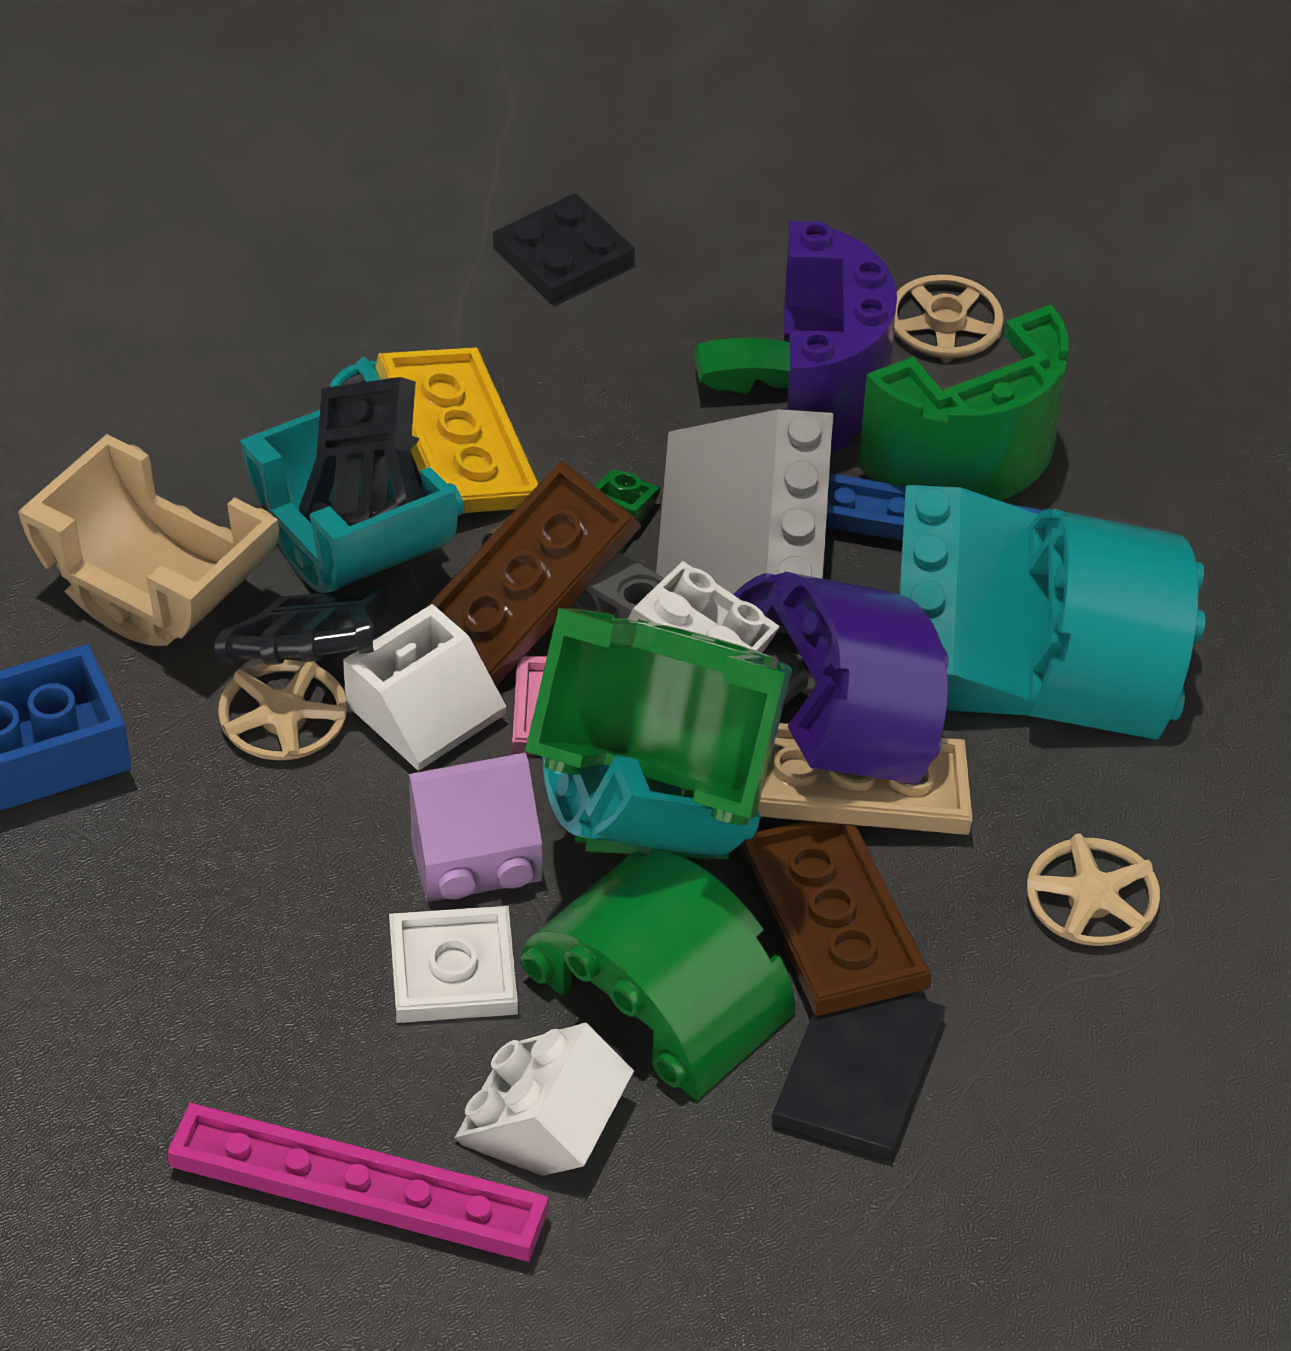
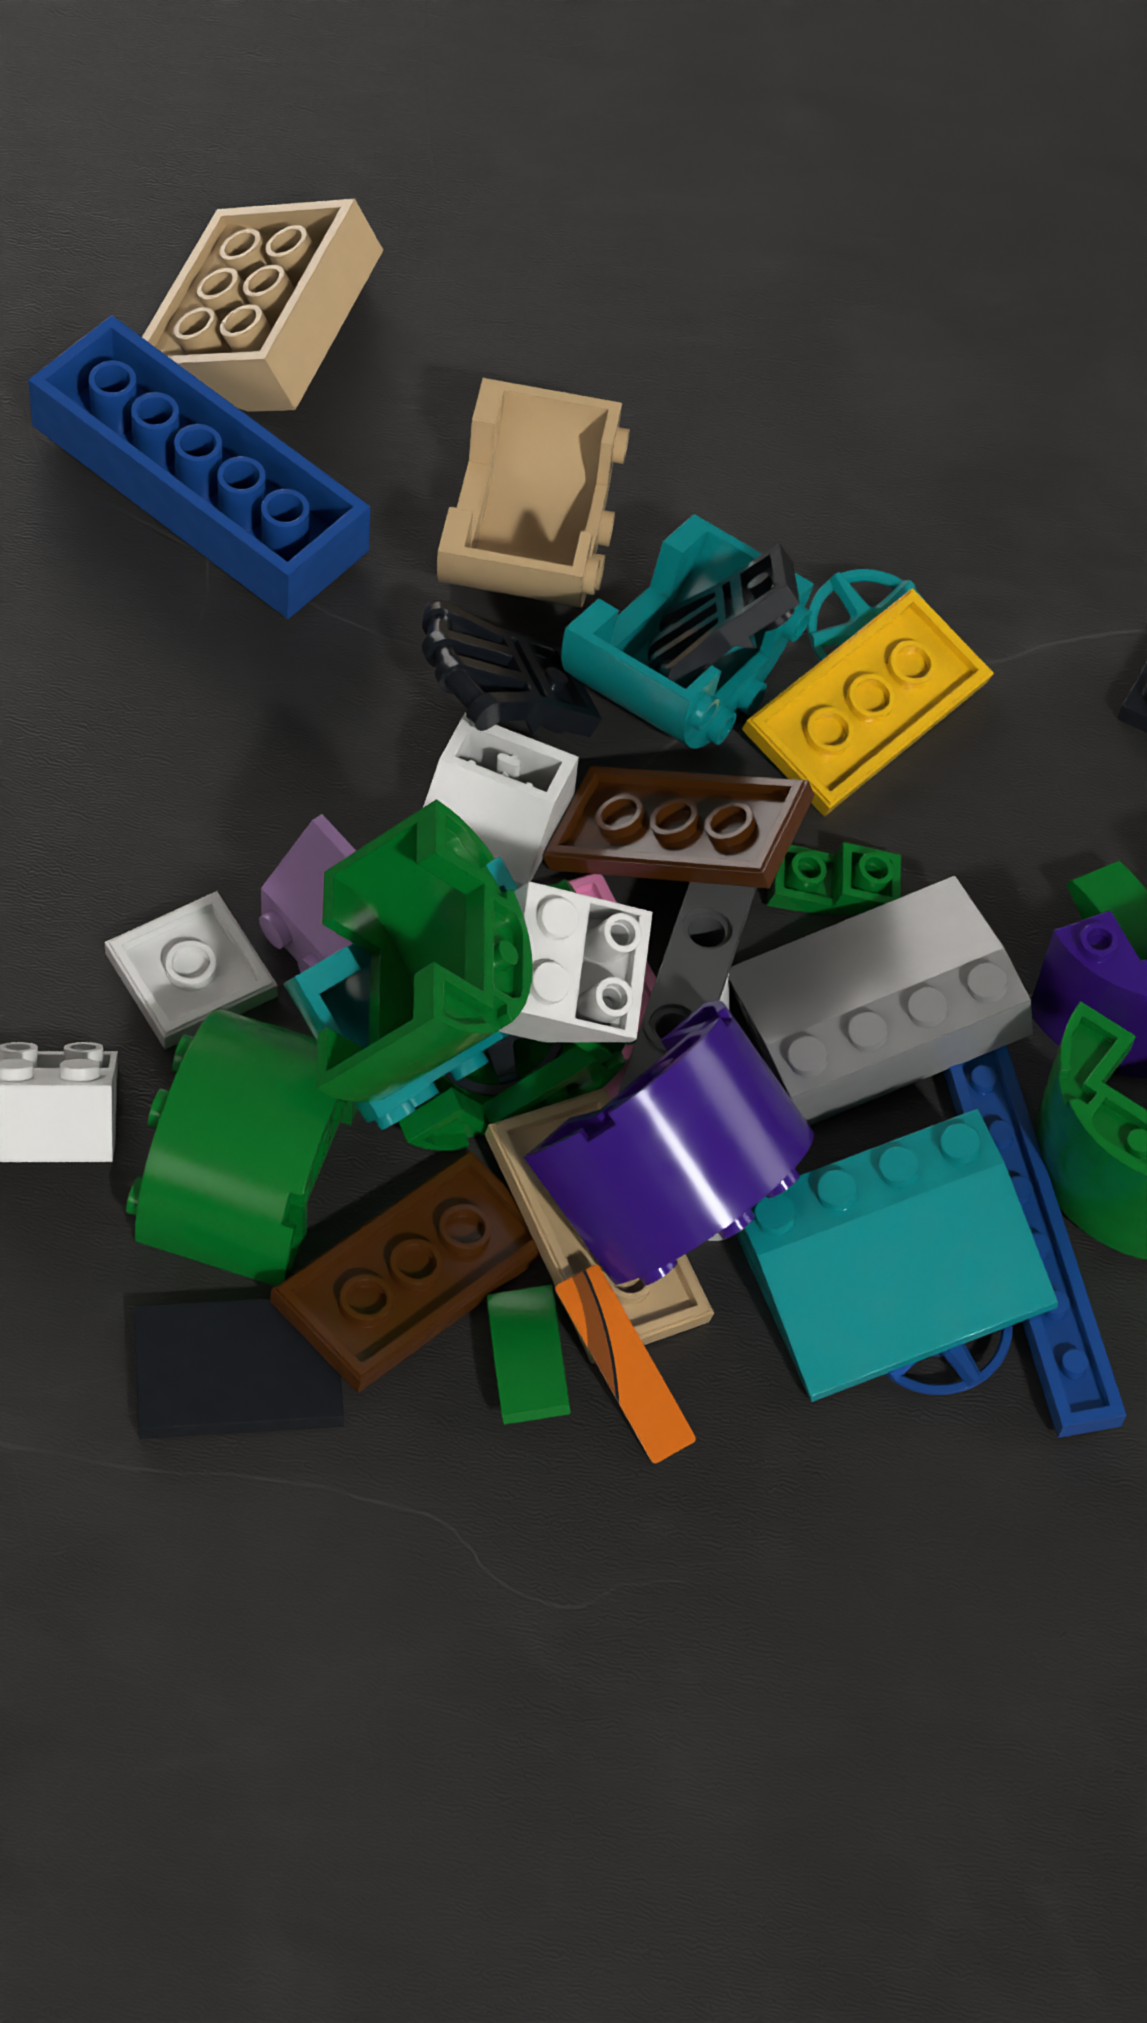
camera: 60 degrees right, 10 degrees up
(283, 709) = (422, 709): tan wheel -> none
(956, 863) = (528, 1354): none -> green slope
(987, 806) = (625, 1363): none -> orange sticker
(1092, 891) = (577, 1508): tan wheel -> none
(1116, 623) = (927, 1377): teal cylinder -> none

